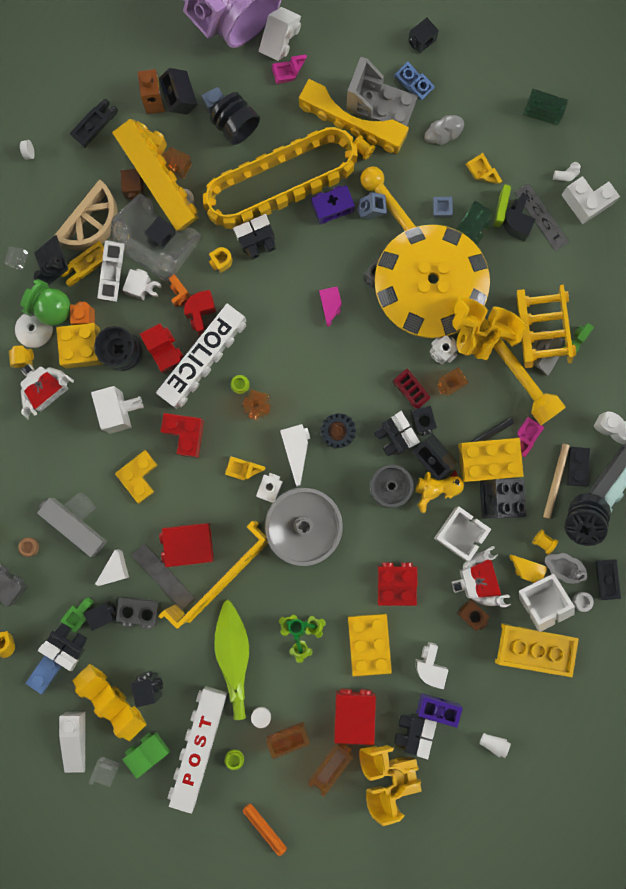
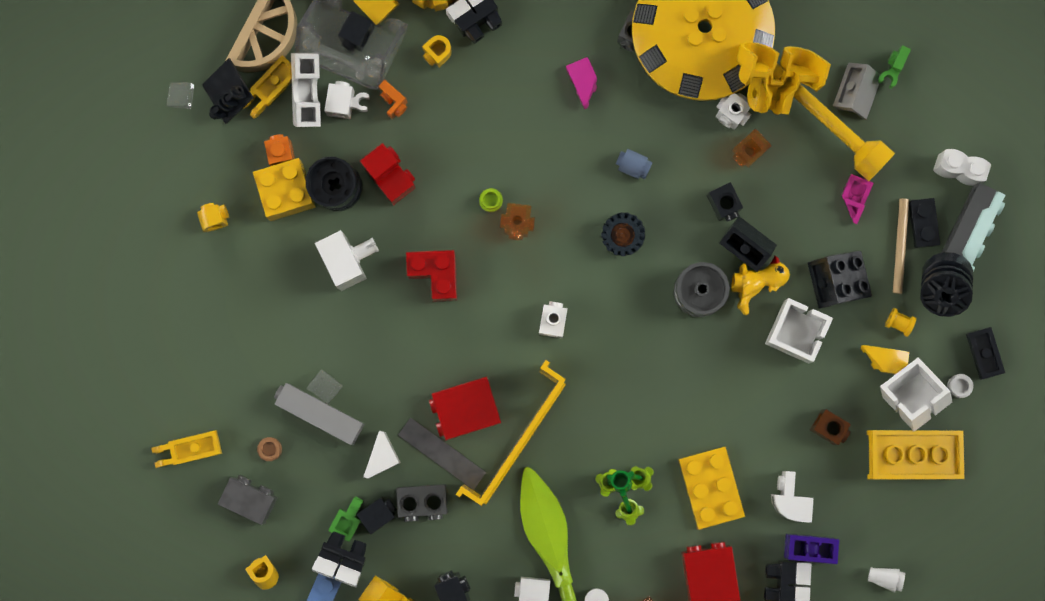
camera: 15 degrees left, 0 degrees up
(35, 338) = (232, 182): white dish -> none
(41, 388) = (248, 249): torso -> none
(46, 303) = (237, 146): bright green tile -> none
(132, 476) = (380, 336): yellow plate -> none
(198, 305) = (420, 113): red brick -> none
(201, 356) = (437, 174): white brick -> none
(242, 469) = (514, 304): yellow slope -> none
(296, 447) = (575, 263): white slope -> none
(303, 526) = (604, 358): light grey dish -> none
(357, 377) = (633, 164): none -> sand blue brick
(397, 584) = (731, 408): red plate -> none
(400, 442) = (686, 220): black hips -> none
(406, 373) = (690, 167): dark red slope -> none
(480, 580) = (831, 383): torso -> none
(490, 460) = (815, 234): yellow brick -> none
(495, 430) = (806, 205): black bar -> none
(529, 337) = (842, 97): yellow fence -> none
(566, 568) = (932, 348): light grey arm -> none

